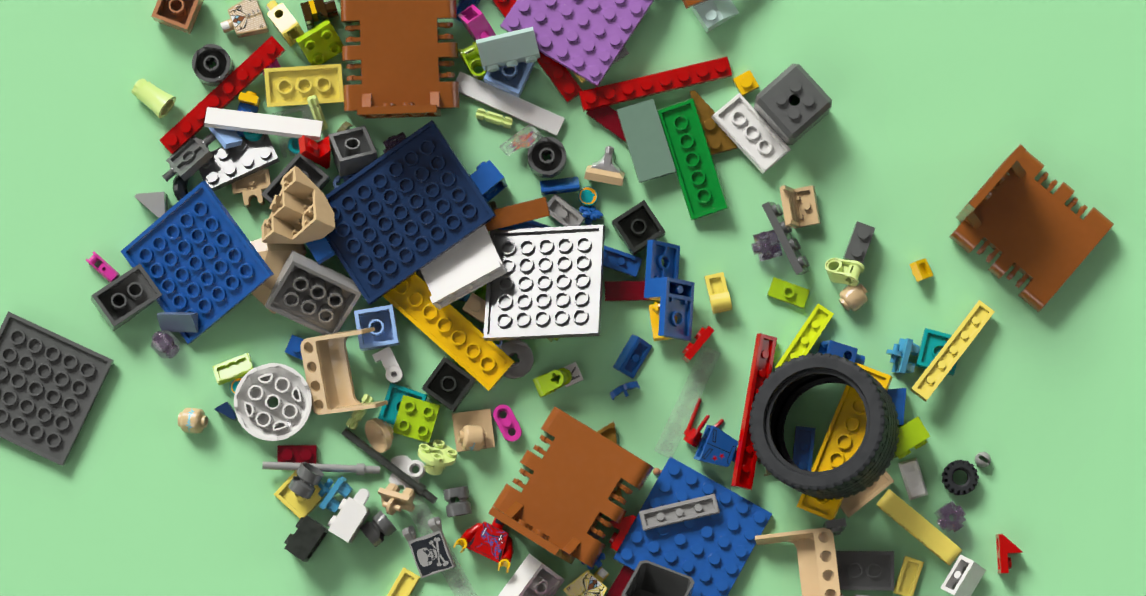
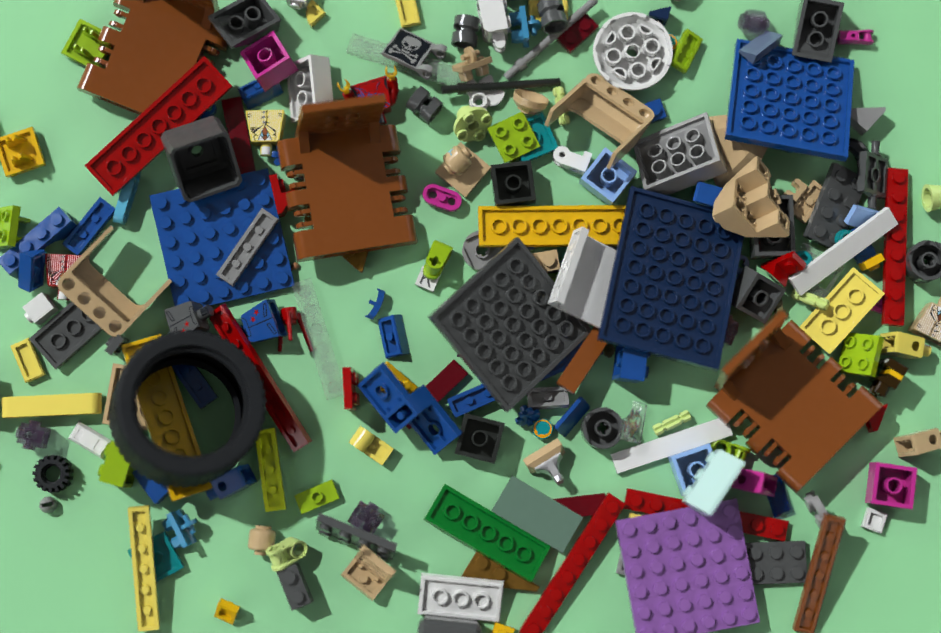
camera: 135 degrees right, 0 degrees up
(769, 496) = (189, 317): none -> dark grey torso

